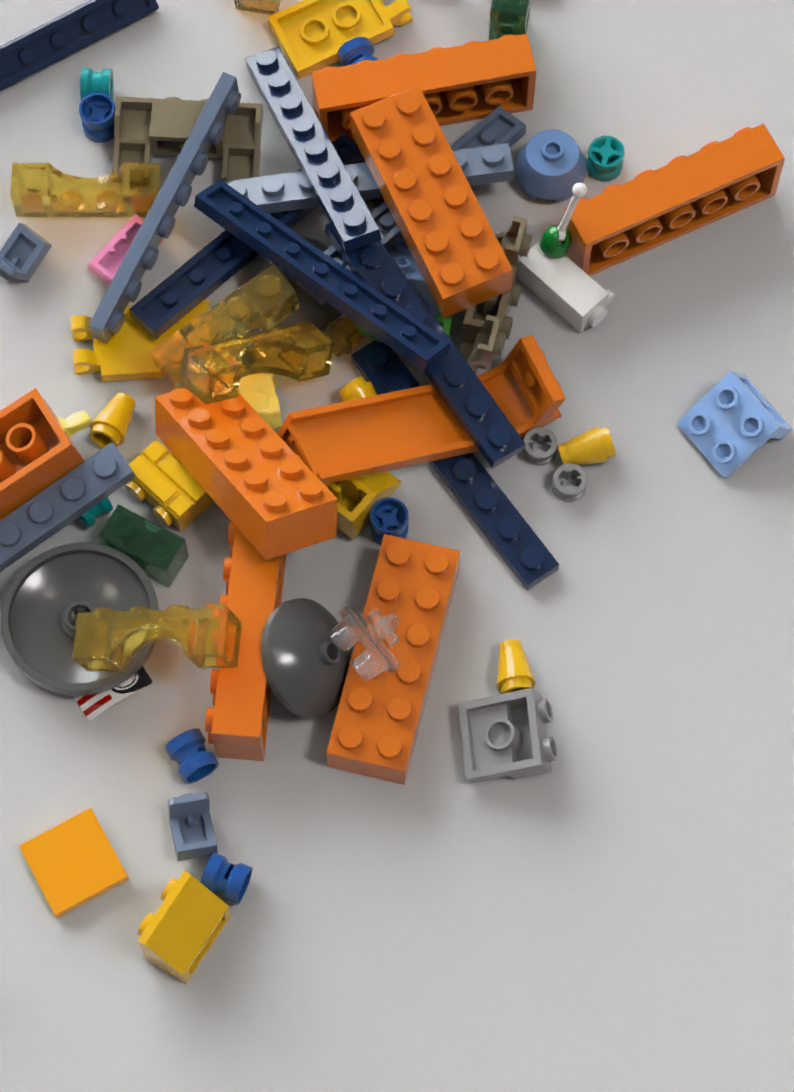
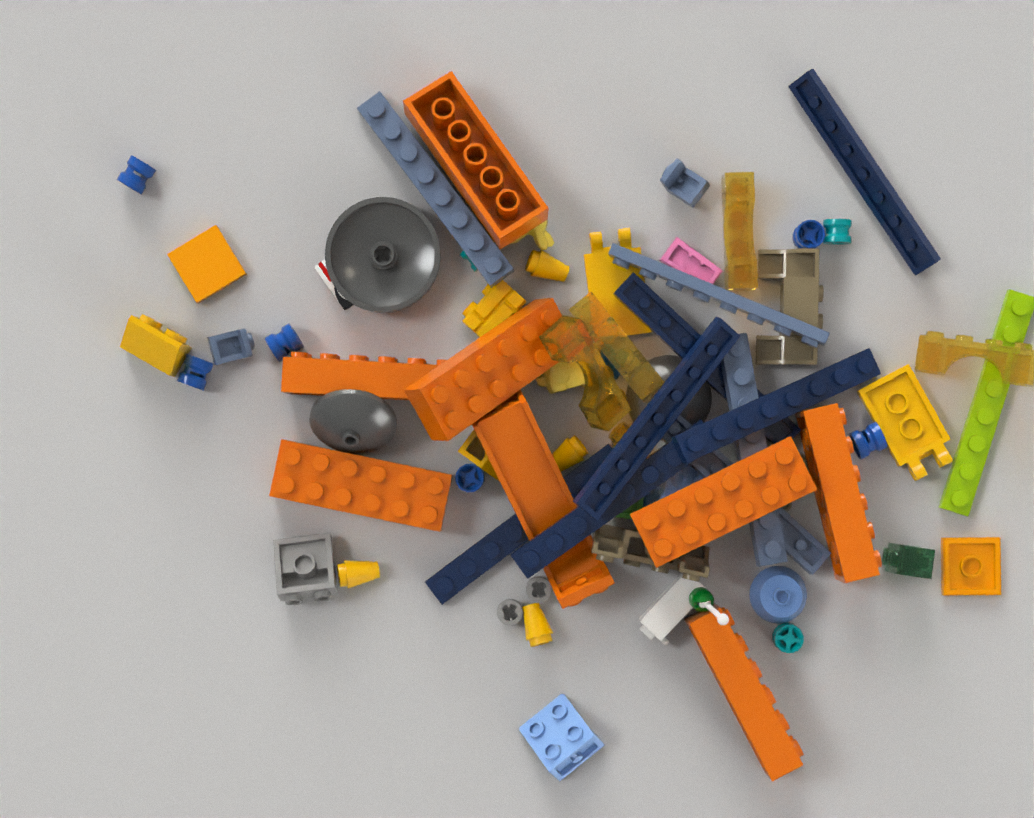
camera: 90 degrees right, 20 degrees up
(111, 638) = (350, 347): clear yellow arch -> none
(148, 544) = (443, 296): clear green brick -> none
(355, 628) = (361, 469): clear hips -> none

